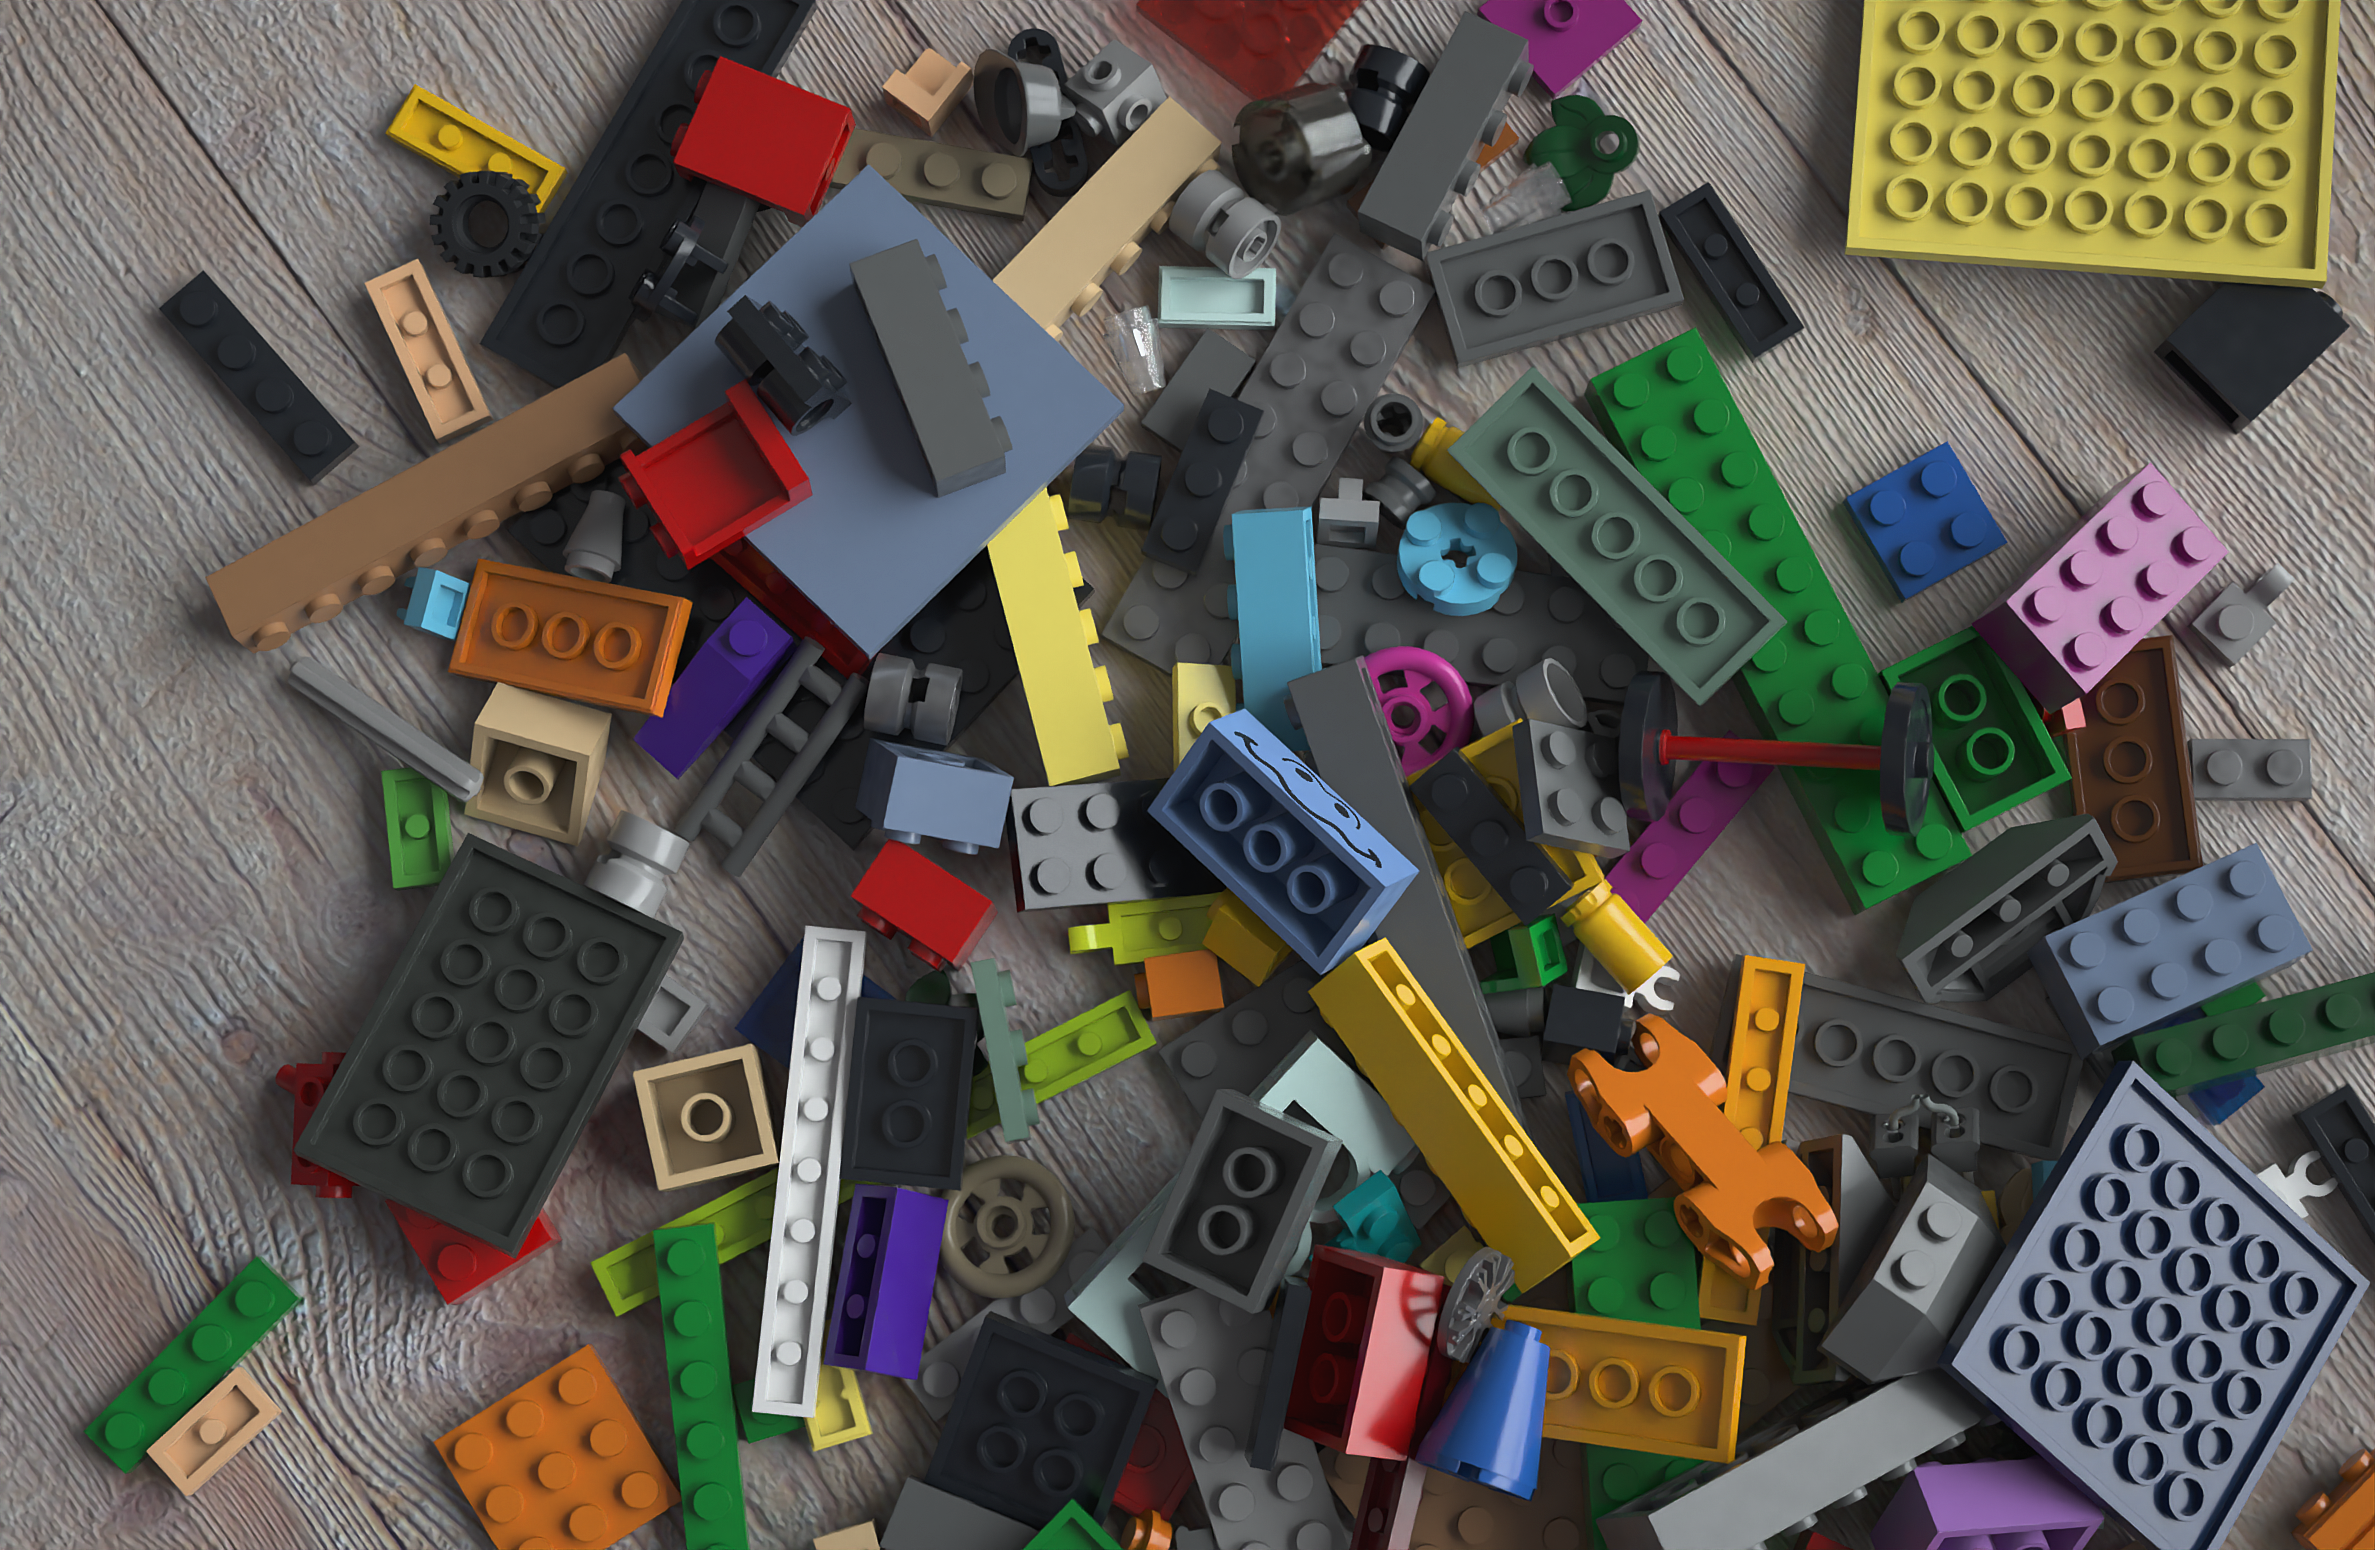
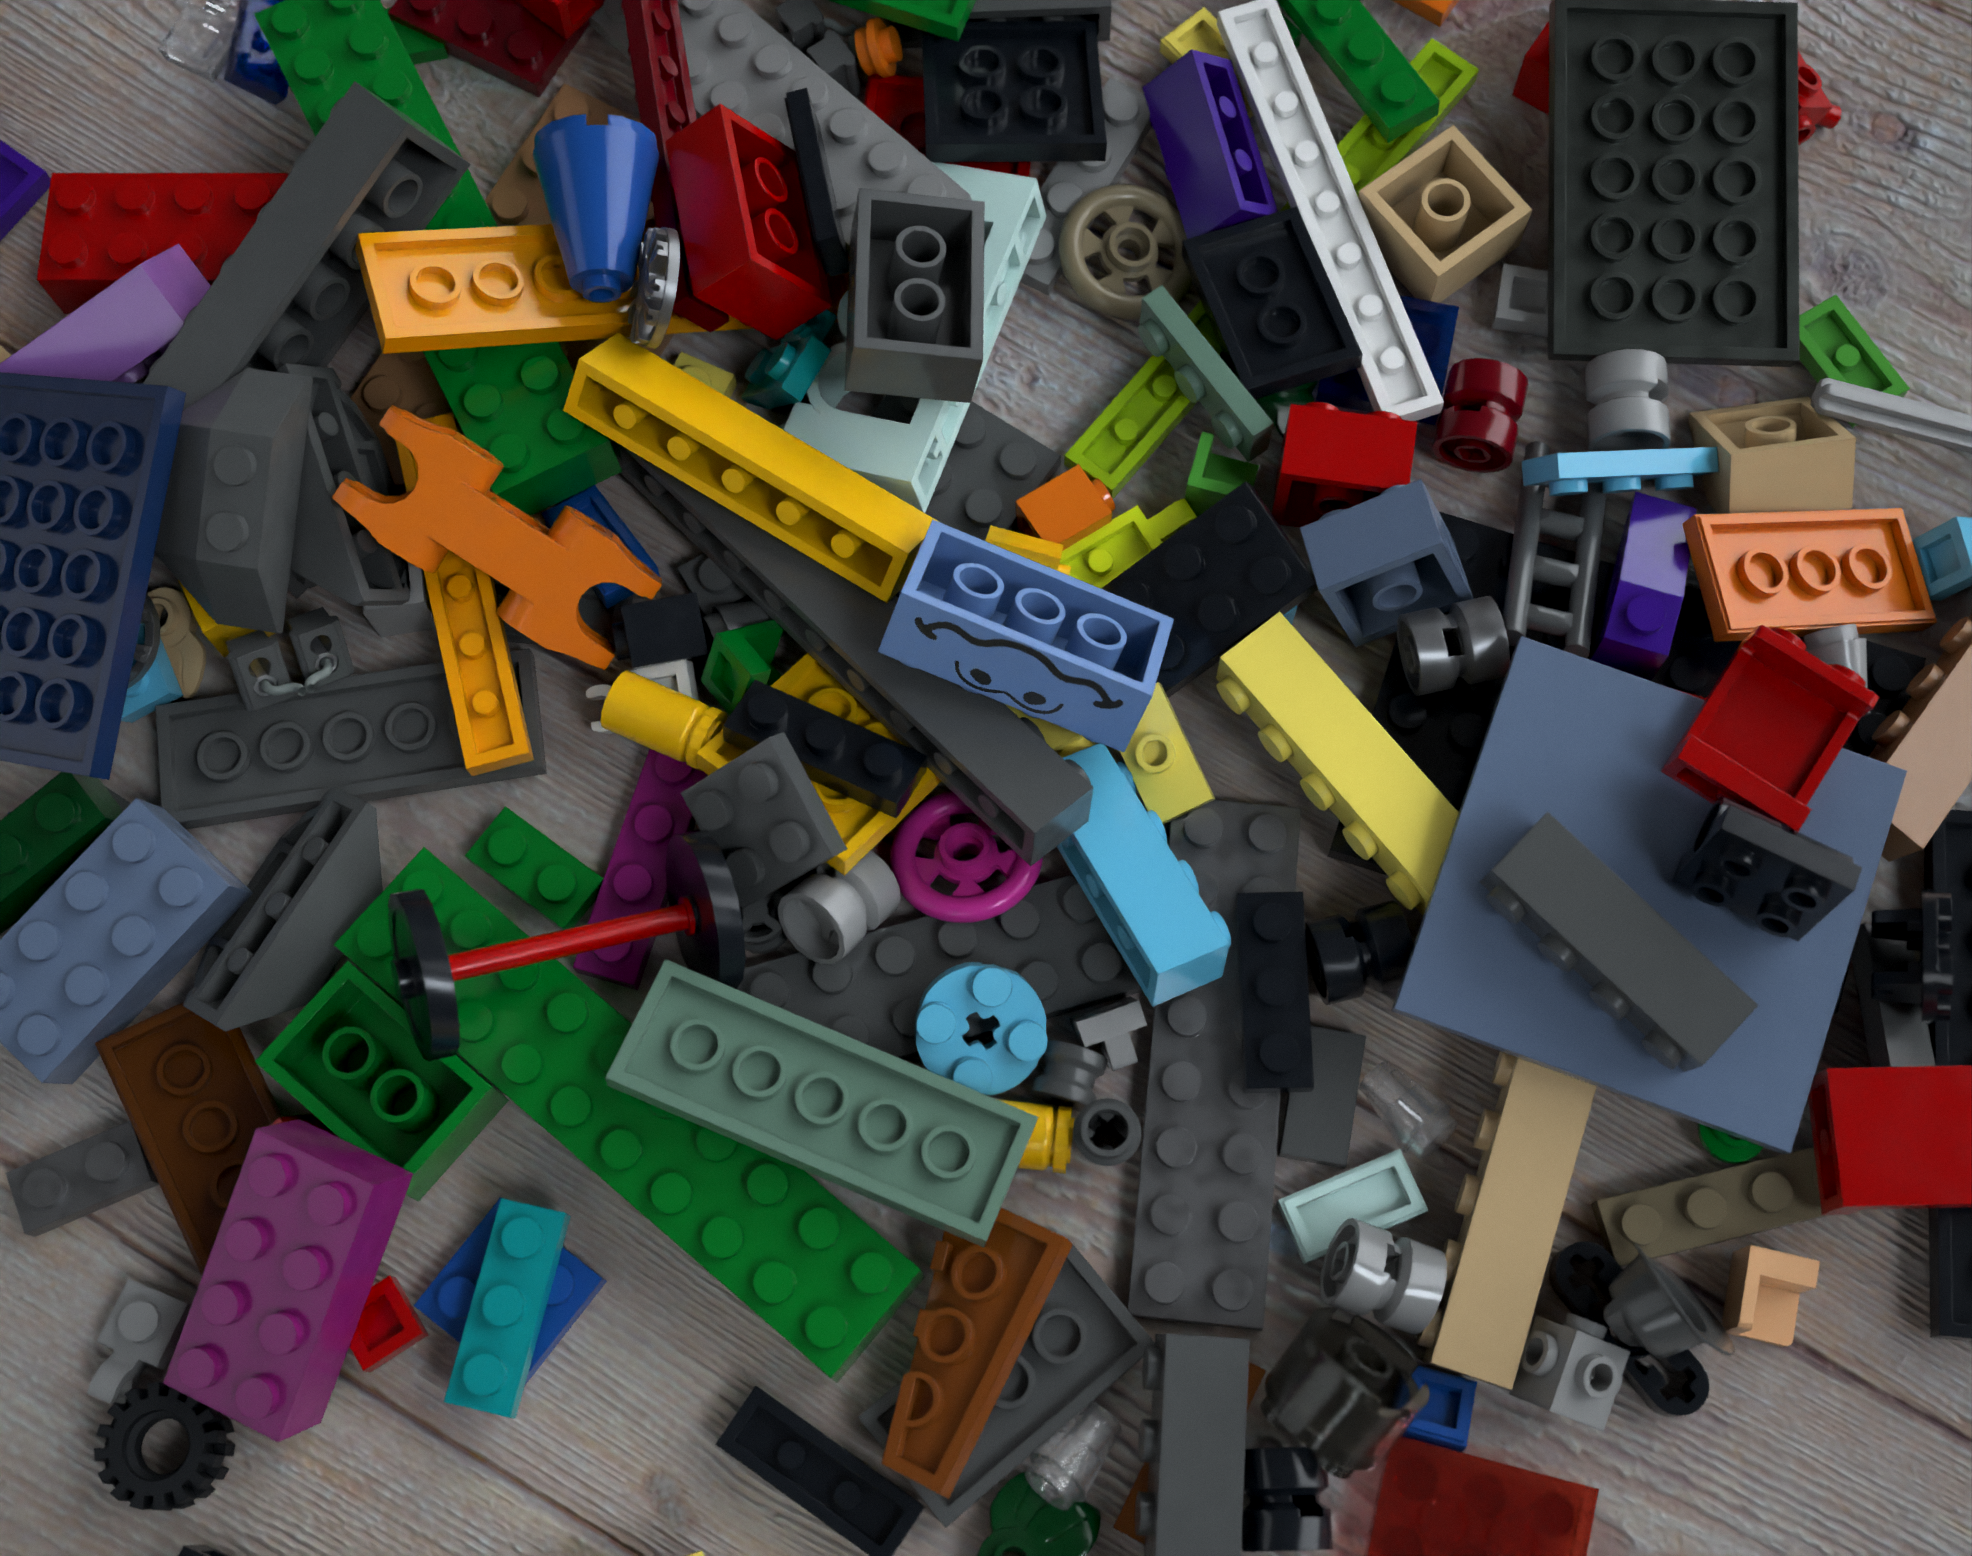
camera: 160 degrees right, 10 degrees down
(682, 799) = (1619, 470): none -> medium azure plate
(751, 925) = (1480, 415): none -> dark red wheel
(1030, 956) = (1215, 476): none -> bright green panel
(1219, 113) = (1447, 1413): none -> blue tile
(1576, 308) = (968, 1344): none -> dark orange wing
(1774, 871) = (535, 869): none -> green plate
(1931, 499) = (507, 1308): none -> teal plate
(2033, 533) = (386, 1325): none -> red plate
(2271, 493) = (124, 1441): none -> black tyre

